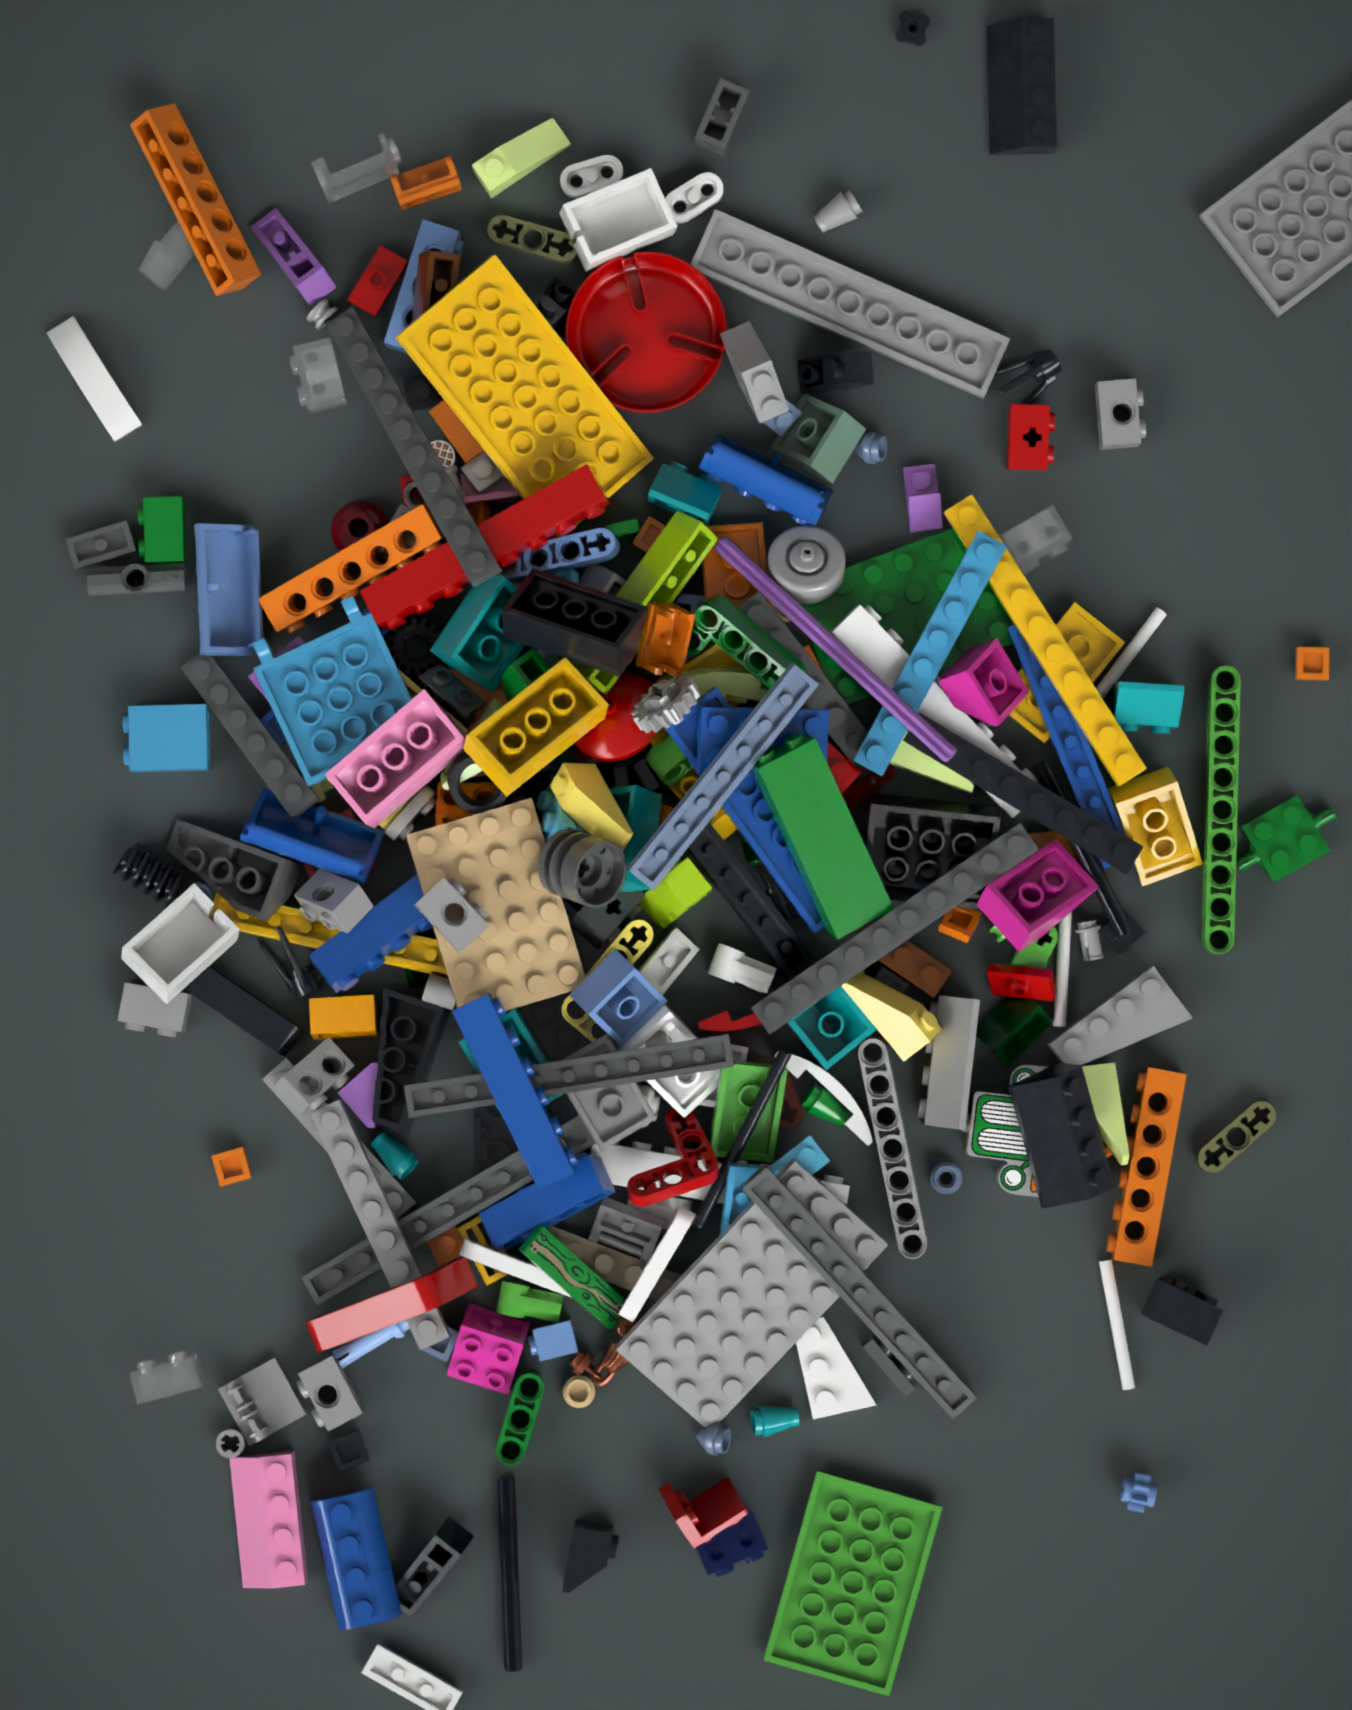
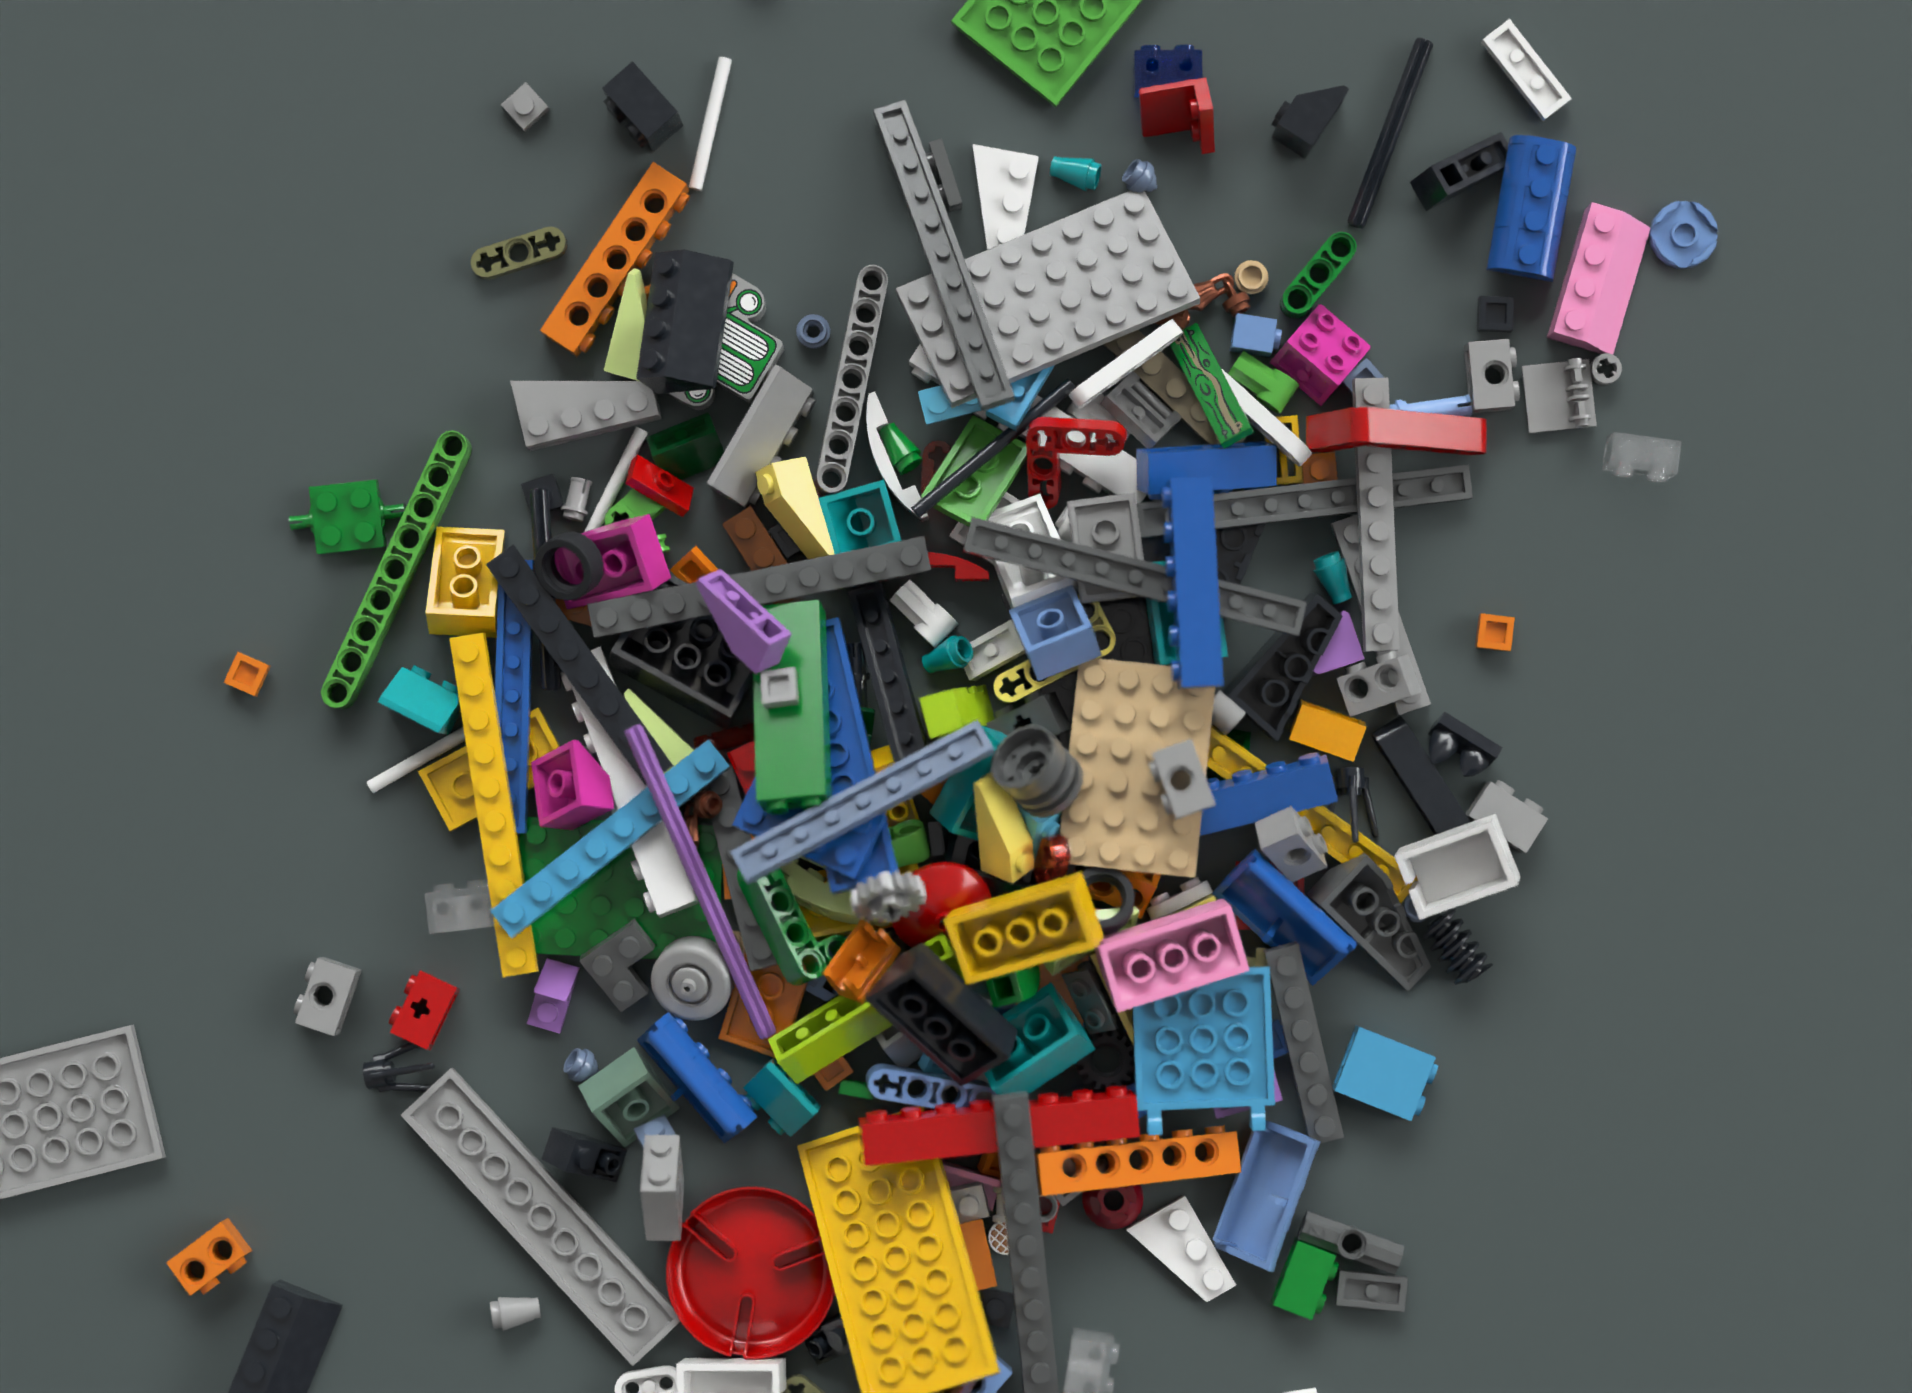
camera: 155 degrees left, 0 degrees up
(211, 1594) = (1683, 234): none -> medium blue tile
(230, 1059) = (1453, 736): none -> black tile
(278, 513) = (1184, 1247): none -> white wing
(537, 798) = (1052, 859): none -> clear red beam
(702, 942) = (950, 654): none -> teal cone
(837, 845) = (779, 687): none -> light grey plate
(859, 718) = (706, 805): none -> copper piece
(883, 547) = (612, 960): none -> dark grey plate
(893, 889) = (745, 624): none -> medium lavender slope
(1078, 857) = (551, 578): none -> black tyre
(1127, 149) = (206, 1252): none -> orange brick
(1287, 1269) = (525, 107): none -> light grey plate

